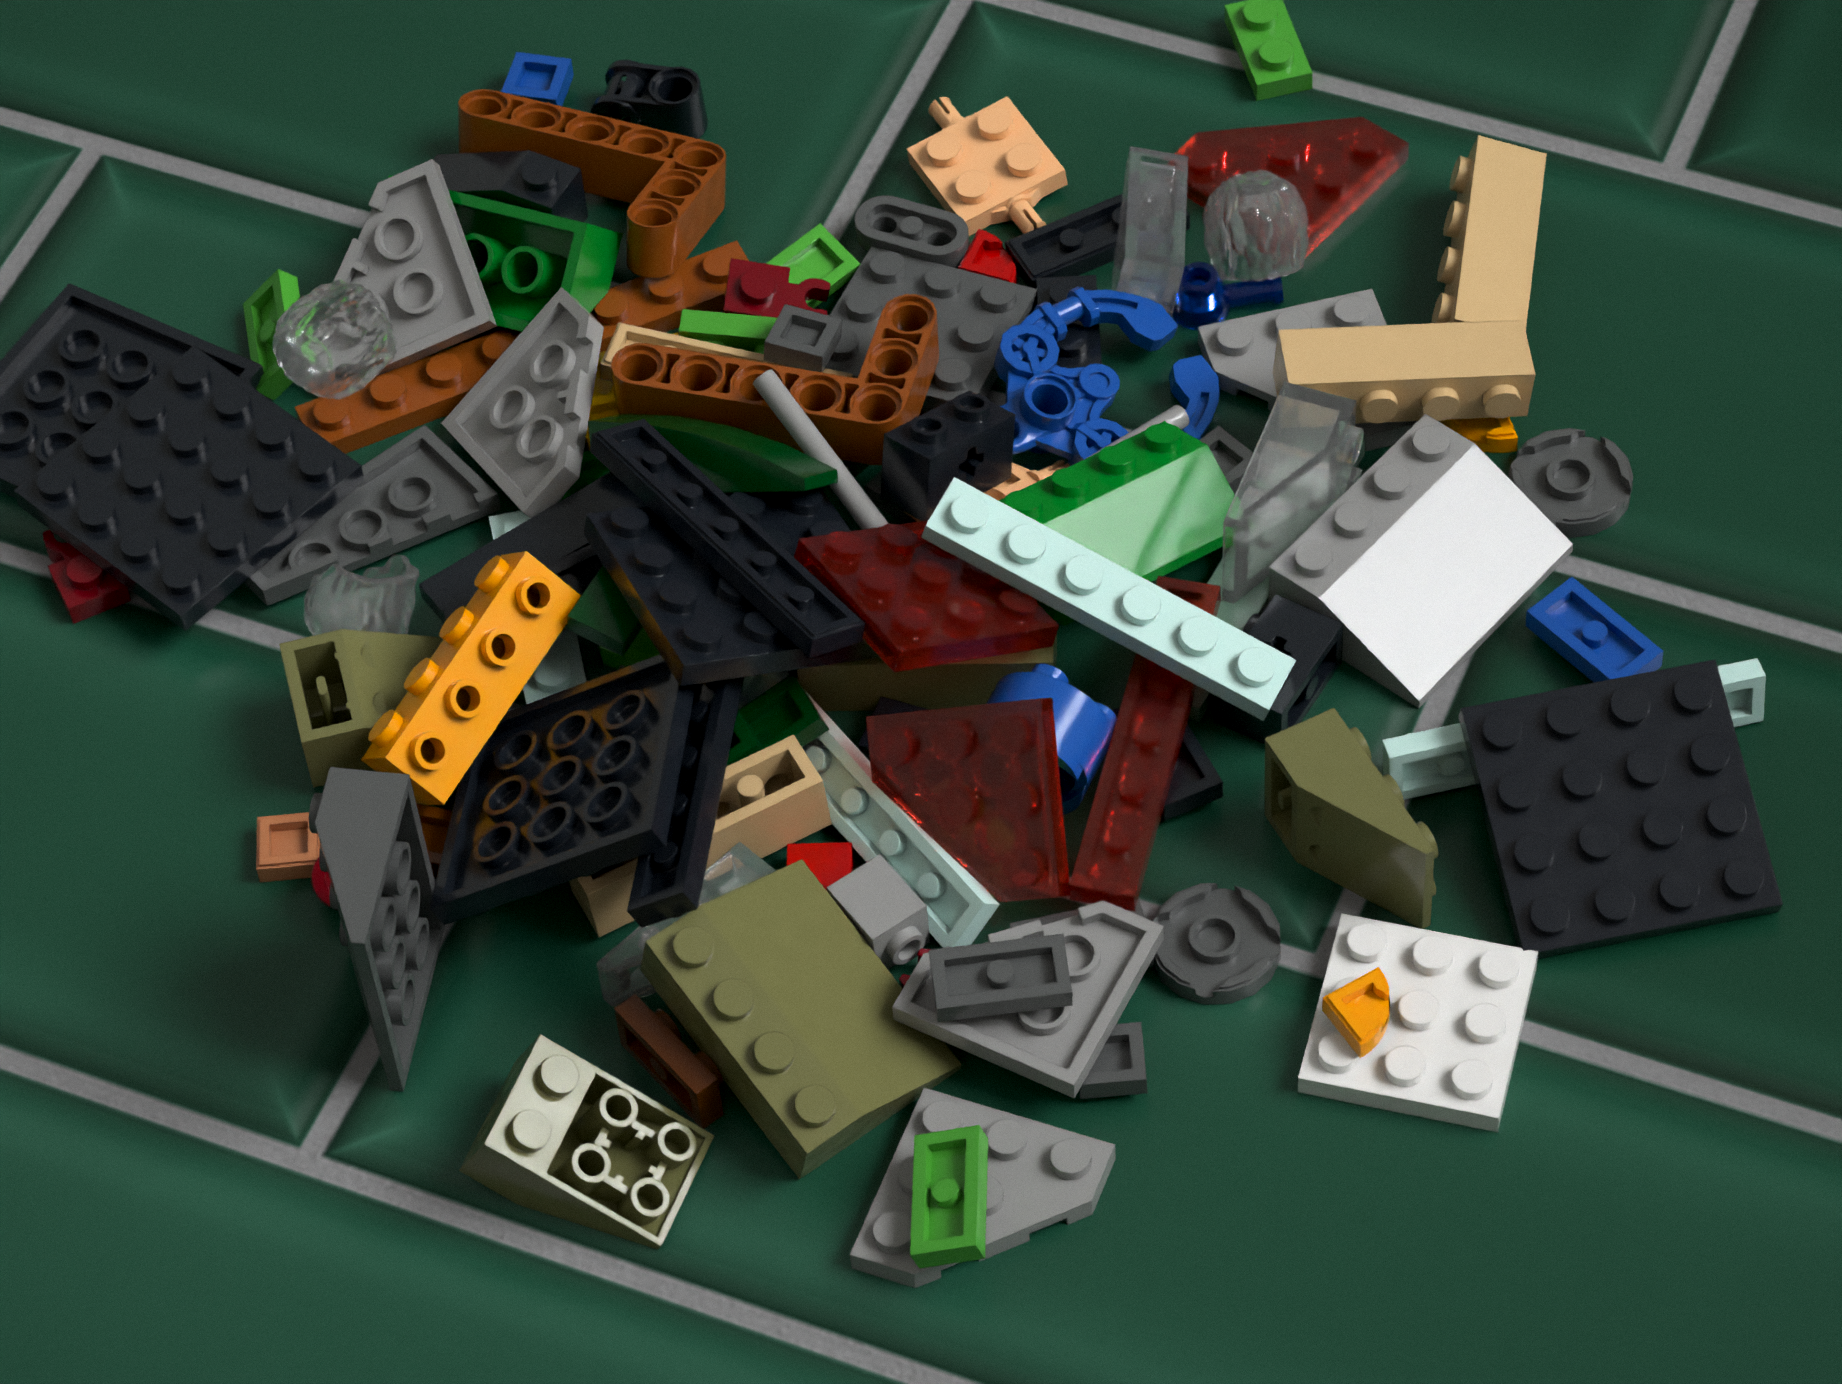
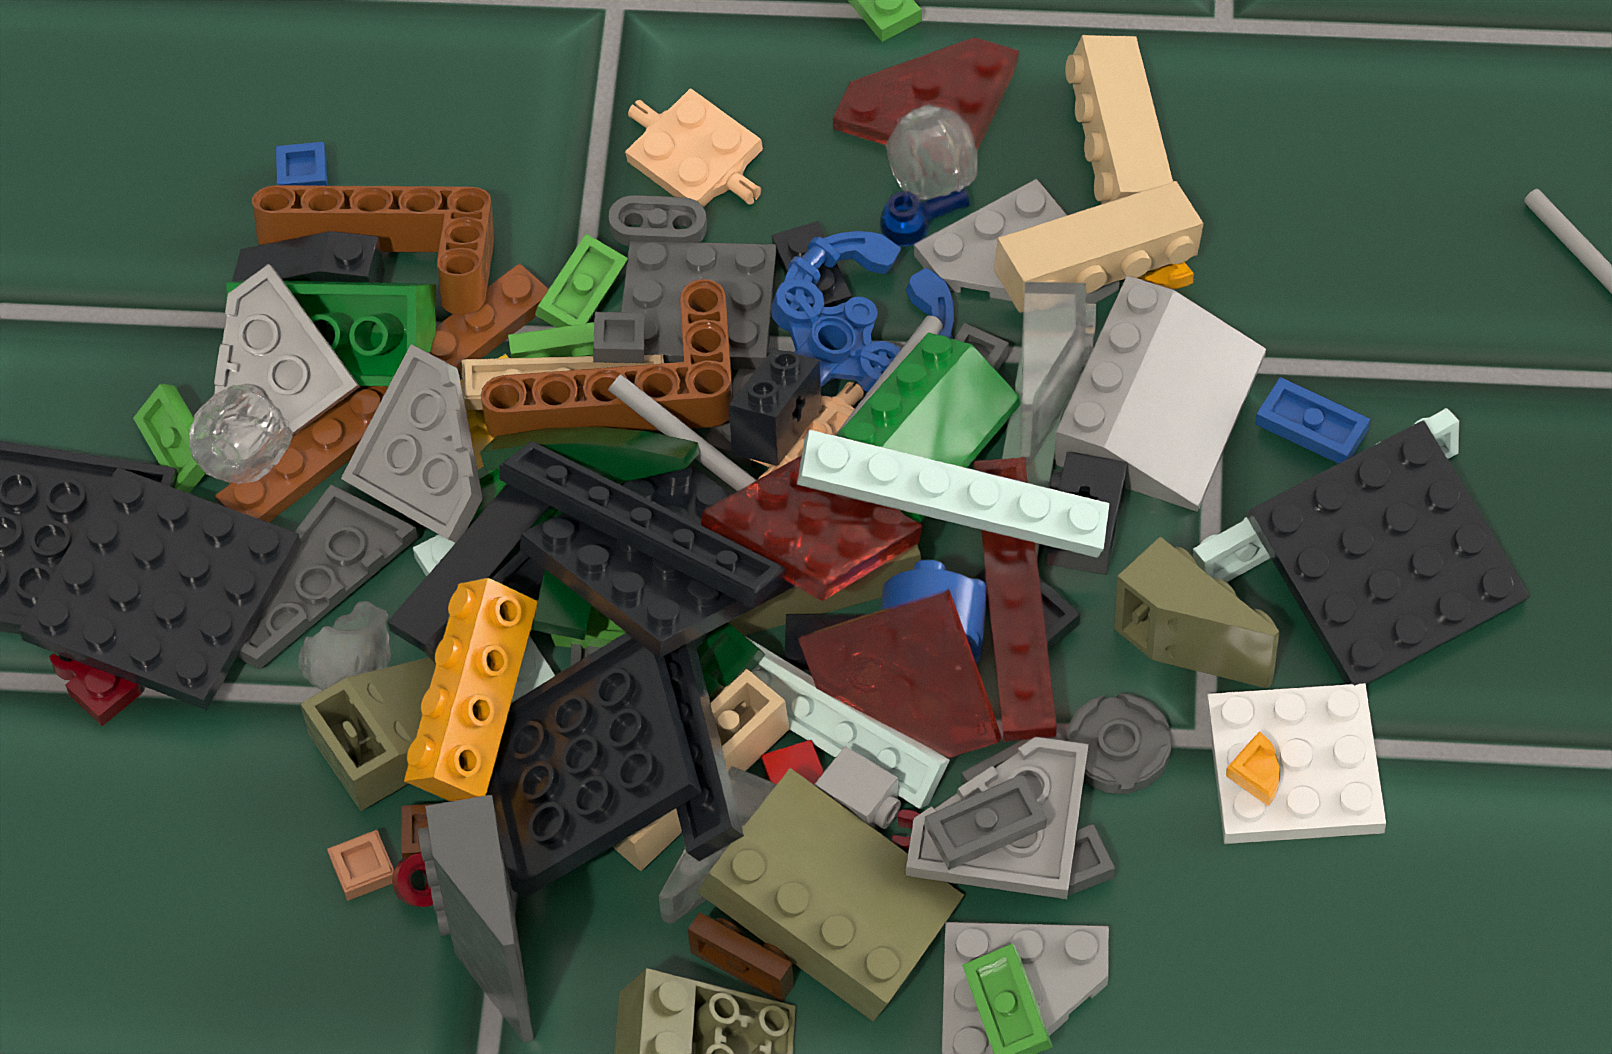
camera: 20 degrees left, 5 degrees up
(654, 97) = (404, 159): black piece -> none
(765, 289) = (566, 304): dark red plate -> none
(989, 258) = (726, 228): red tile -> none
(1069, 244) = (803, 185): black tile -> none
(1152, 227) = (852, 173): clear slope -> none
(1574, 480) = (1247, 295): dark grey tile -> none

